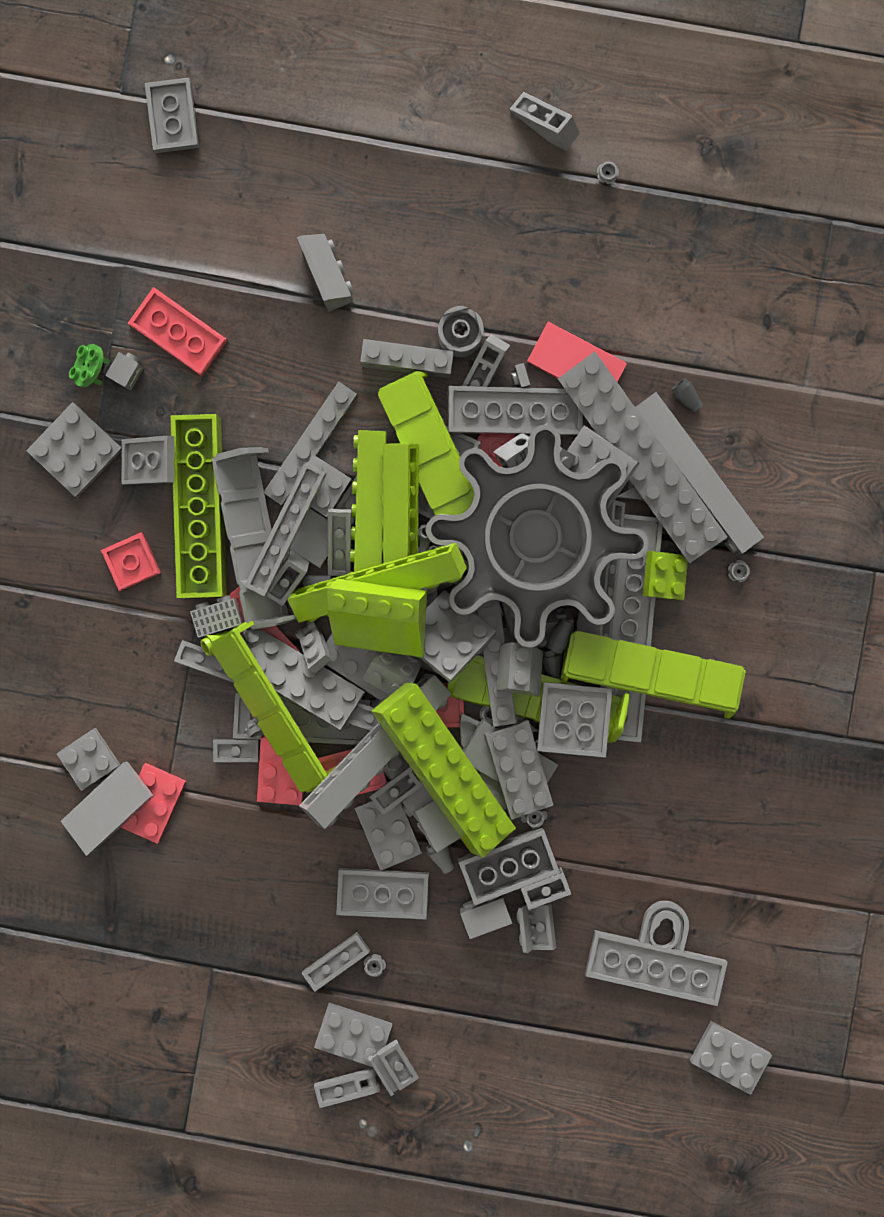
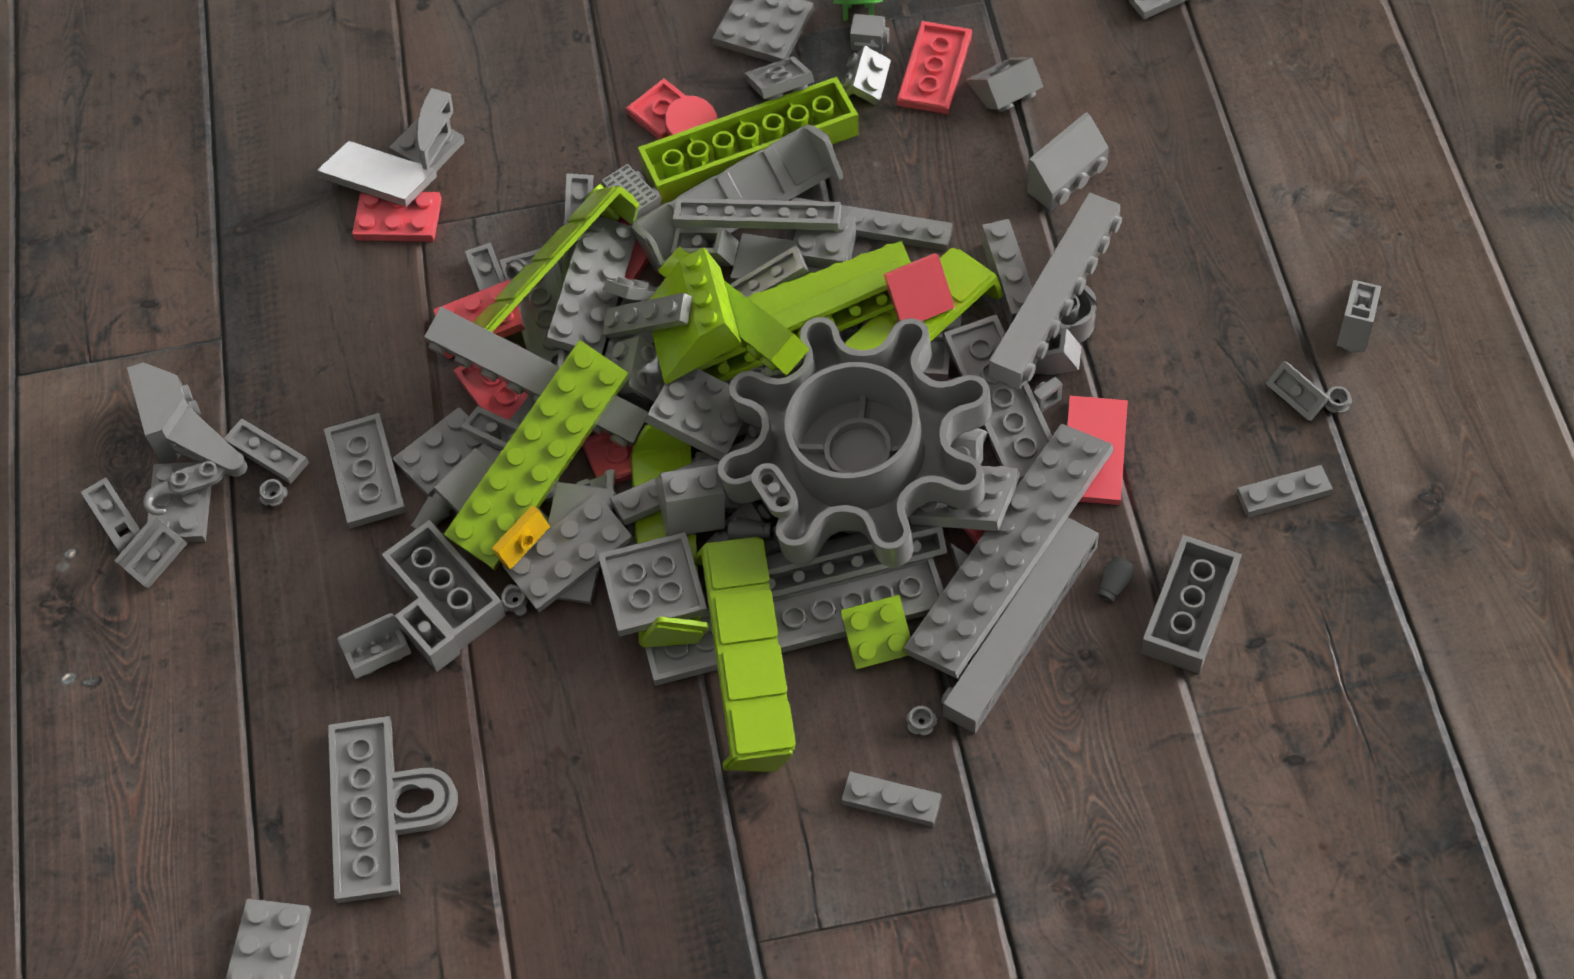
camera: 75 degrees right, 30 degrees down
(83, 752) = (434, 125): none -> light grey slope
(155, 544) = (688, 113): none -> coral tile
(166, 390) = (866, 75): none -> bracket
(220, 283) = (1006, 83): none -> light grey slope
(289, 1029) = (175, 429): none -> light grey slope
(363, 650) = (647, 315): none -> light grey plate
(420, 437) = (919, 289): none -> coral tile
(452, 333) = (1054, 291): none -> light grey brick
(485, 916) = (372, 586): light grey brick -> none
(504, 801) = (521, 537): none -> yellow plate
(567, 614) = (775, 492): none -> light grey plate
(591, 197) = (1297, 390): none -> light grey plate
(663, 246) = (1284, 491): none -> light grey plate
(731, 352) = (1190, 604): none -> light grey brick
(785, 613) = (891, 799): none -> light grey plate

